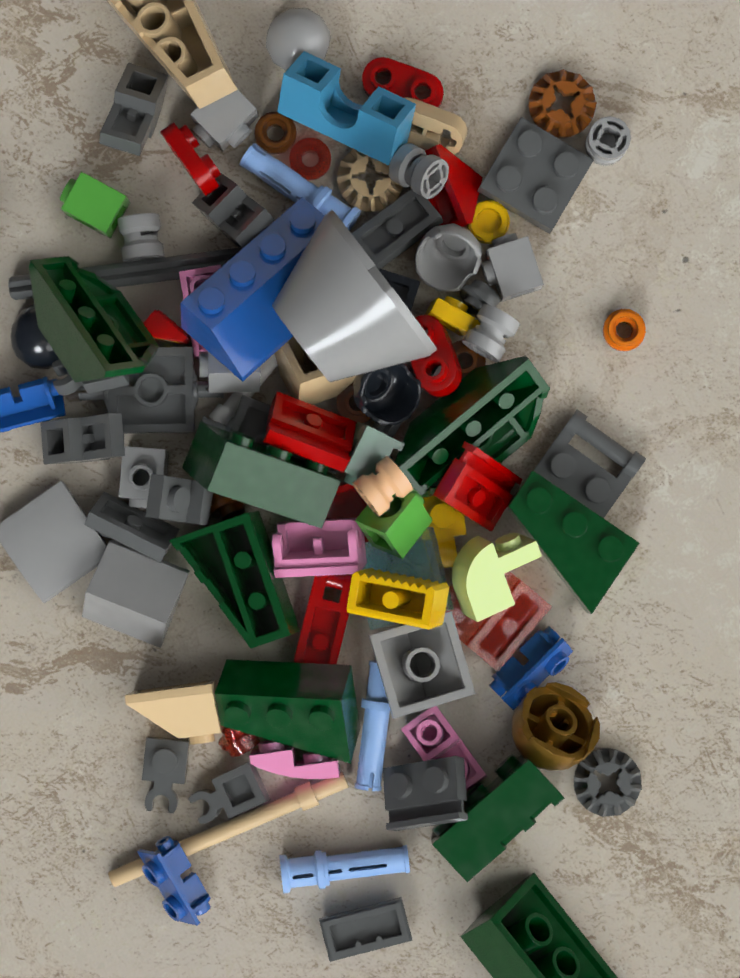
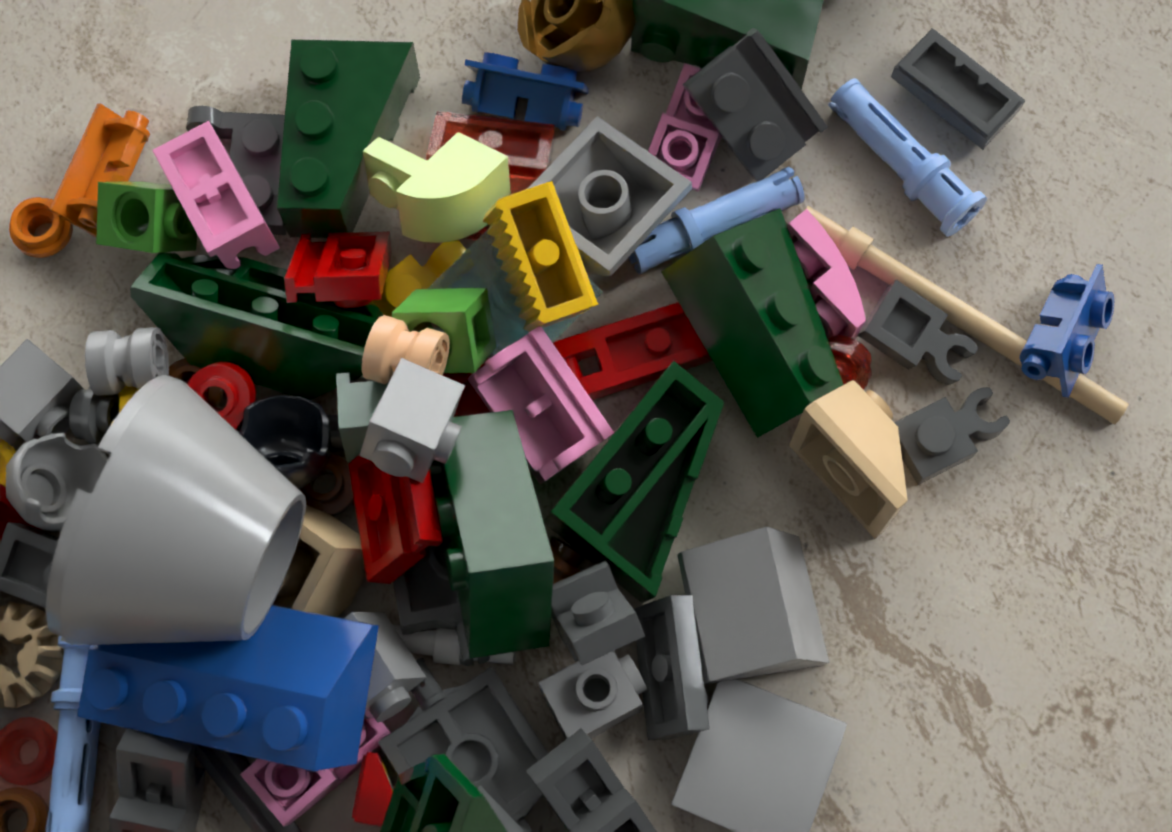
camera: 125 degrees left, 15 degrees down
(334, 464) = (413, 422): none -> brick
(562, 439) = (214, 195): none -> bright pink hinge
(580, 394) = (143, 218): none -> bright green brick
(644, 394) = (103, 155): none -> orange hinge

